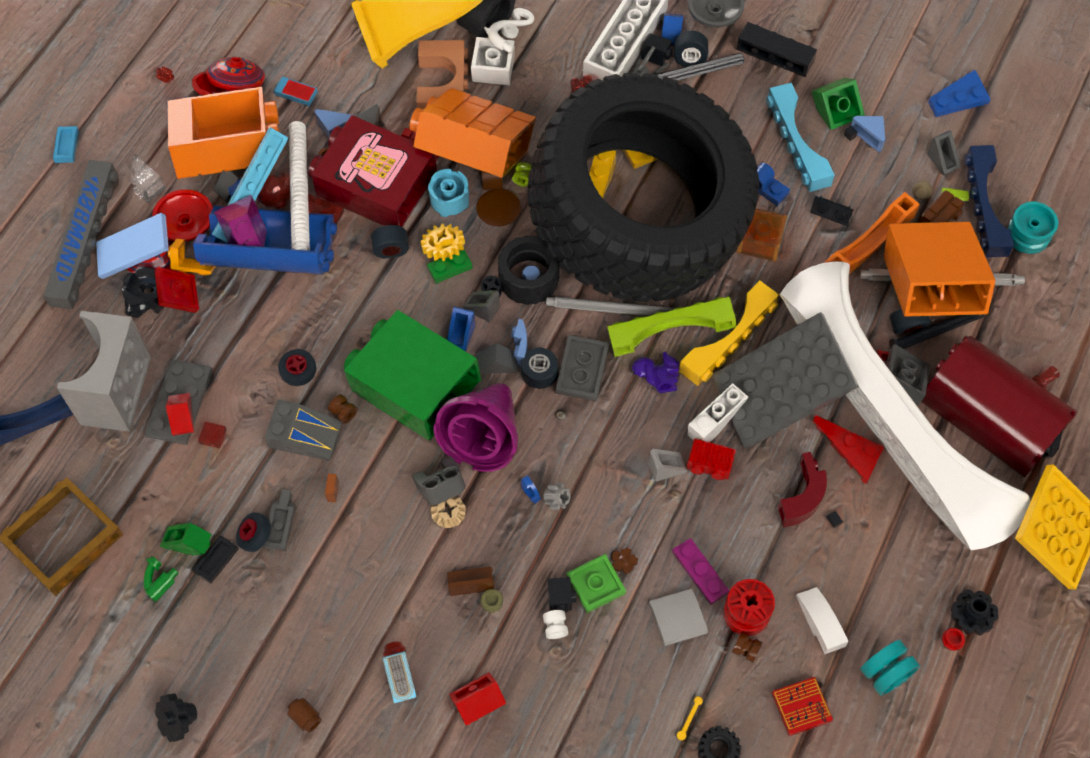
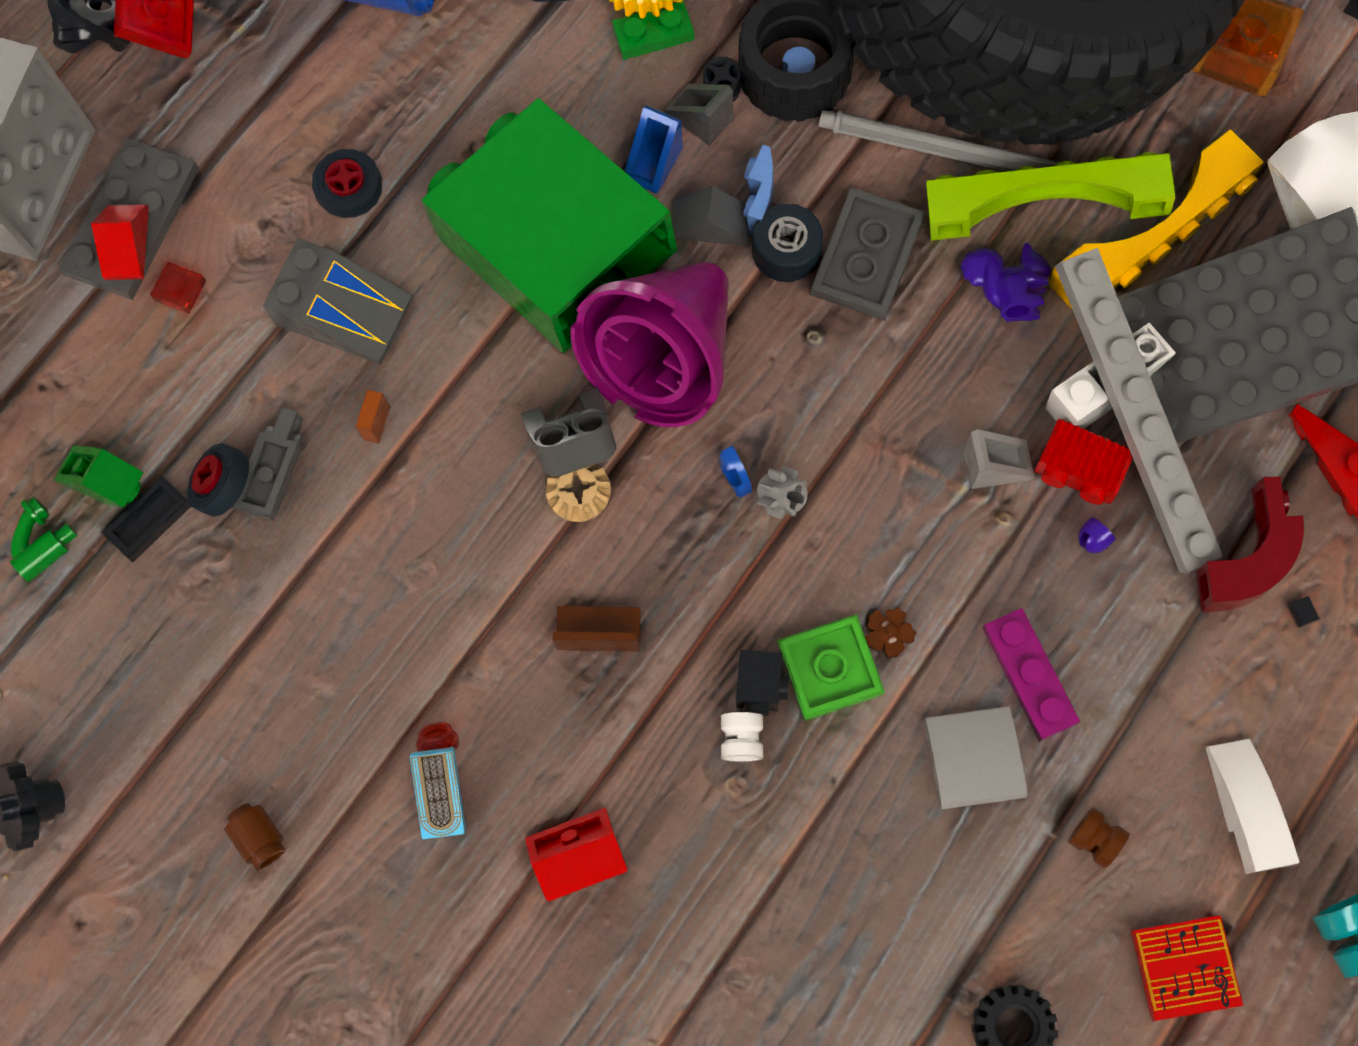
camera: 15 degrees right, 10 degrees up
(341, 408) = (413, 268): reddish brown wheel -> none
(491, 600) = (631, 671): olive tile -> none
(681, 735) = (947, 984): yellow hinge -> none
(722, 496) = (1095, 536): none -> dark purple hinge
(734, 428) = (1138, 410): none -> light grey plate
(747, 618) = (1089, 764): red wheel -> none

